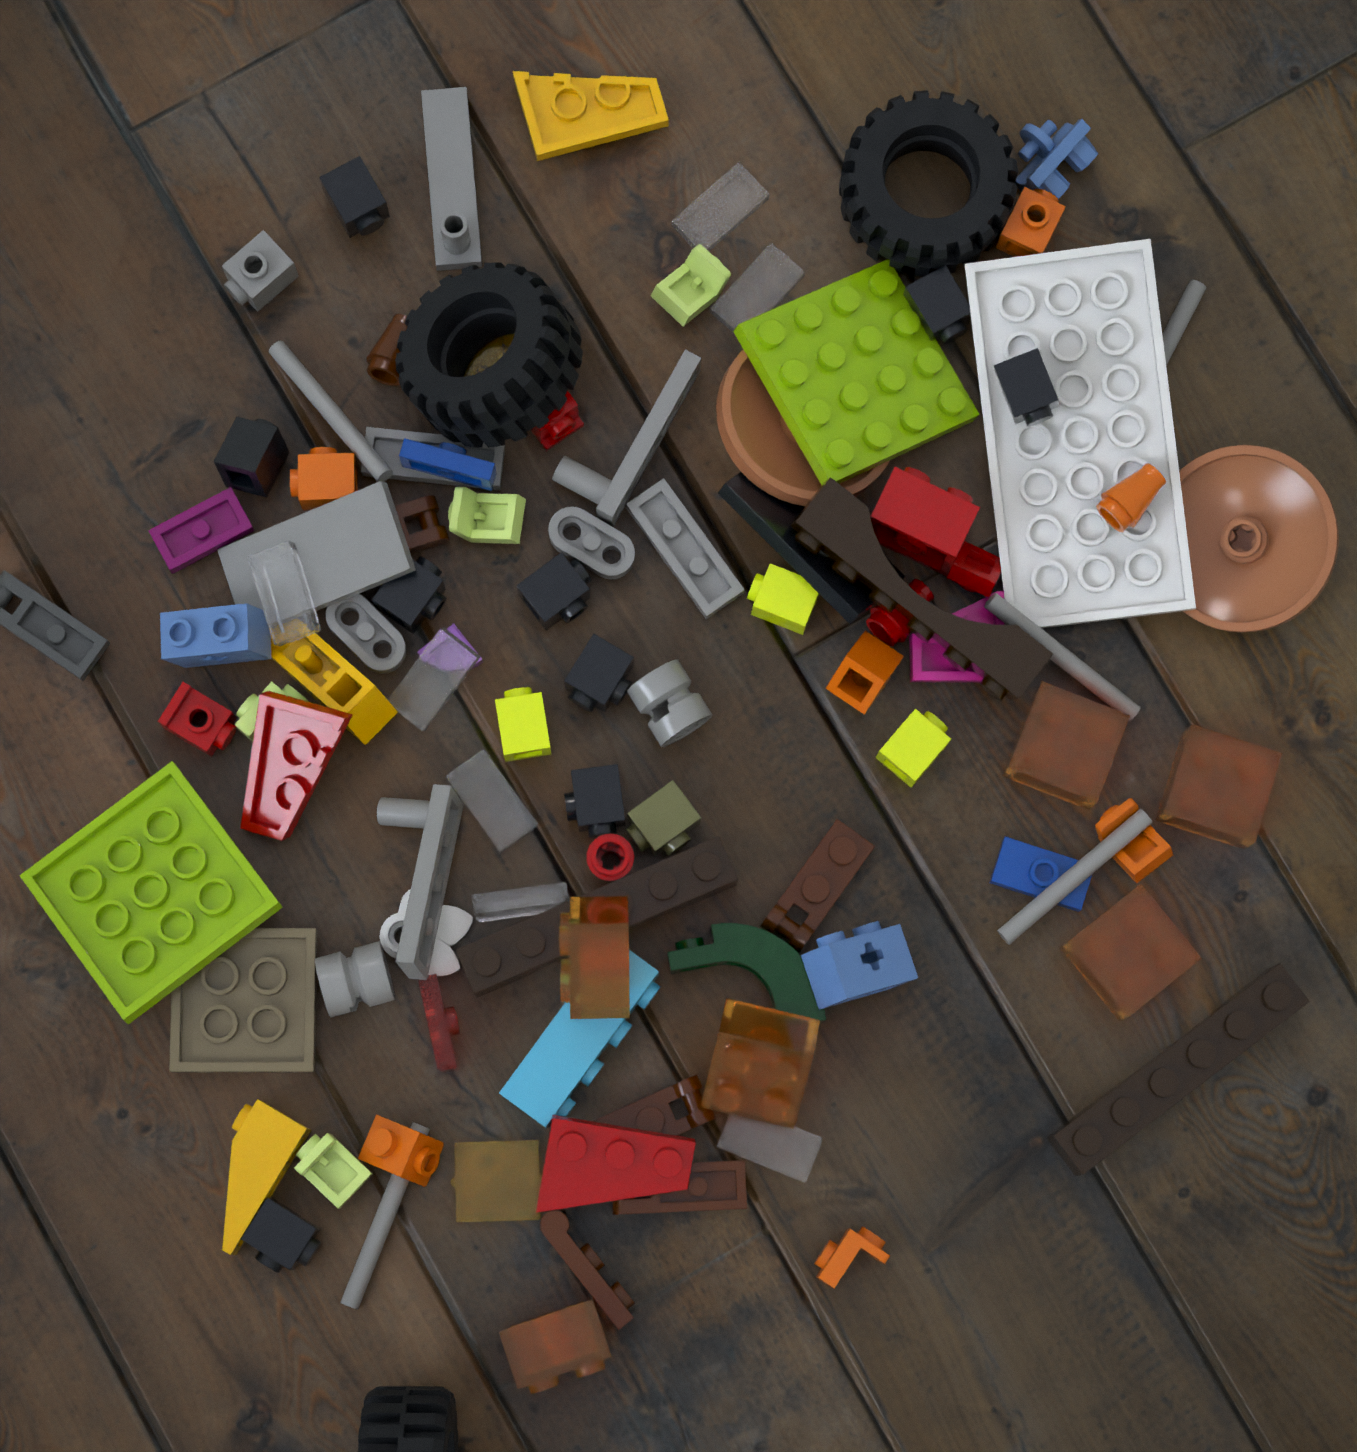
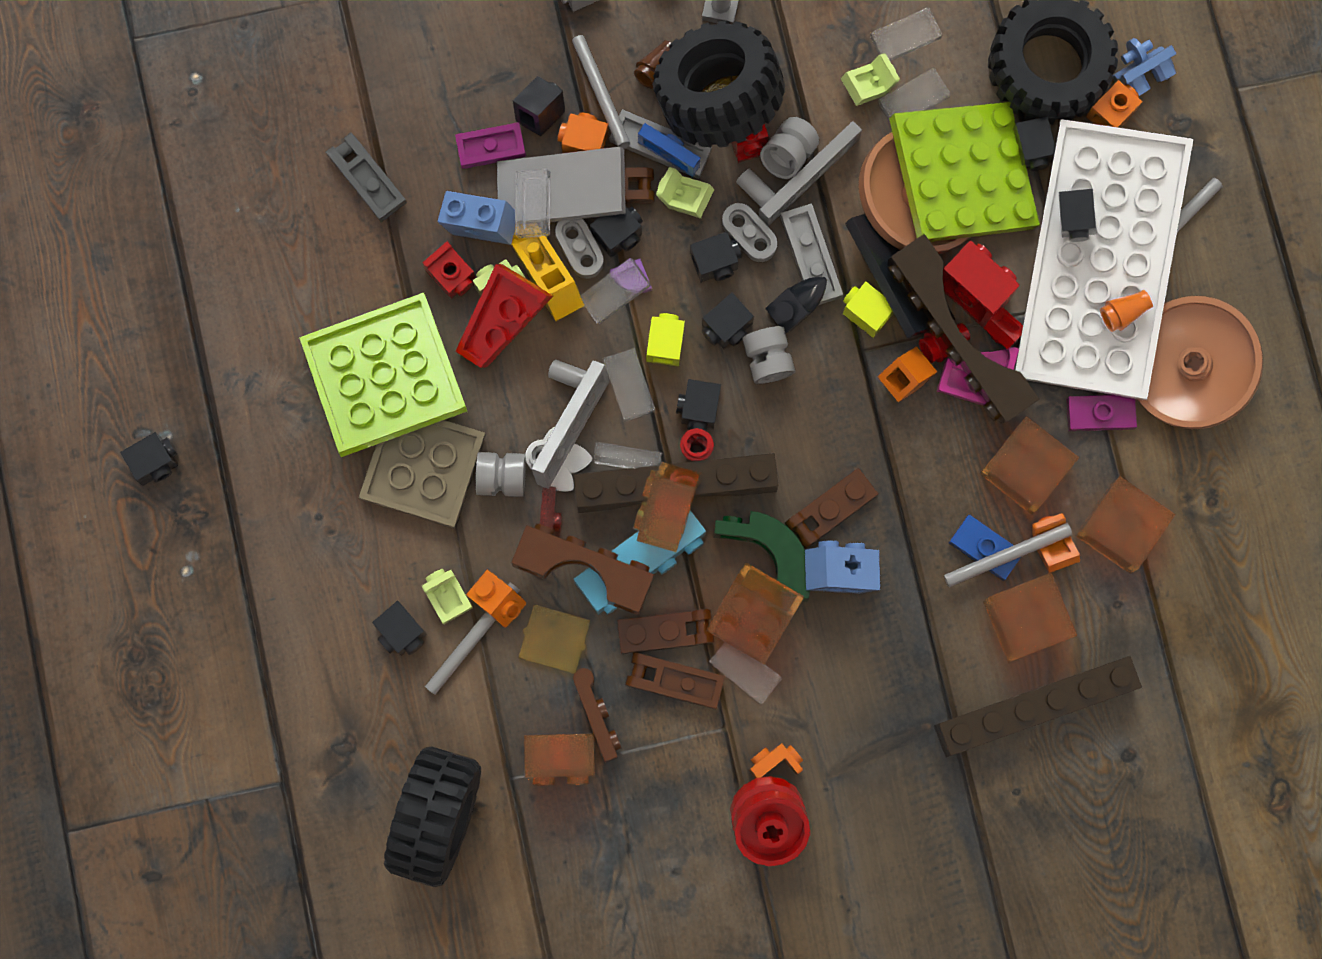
camera: 20 degrees right, 0 degrees up
(258, 1161) = (399, 576): yellow slope -> none
(446, 1071) = (542, 553): none -> reddish brown arch
(608, 1163) = (633, 648): red wing -> none
(611, 411) = (789, 147): none -> light grey wheel
(663, 821) = (740, 432): olive brick -> none
(686, 619) = (797, 302): none -> black plate
(867, 1341) = (769, 821): none -> red wheel
(914, 746) = (925, 434): neon yellow brick -> none
(1064, 658) = (1047, 406): light grey bar -> none
(1139, 644) = (1101, 413): none -> magenta plate

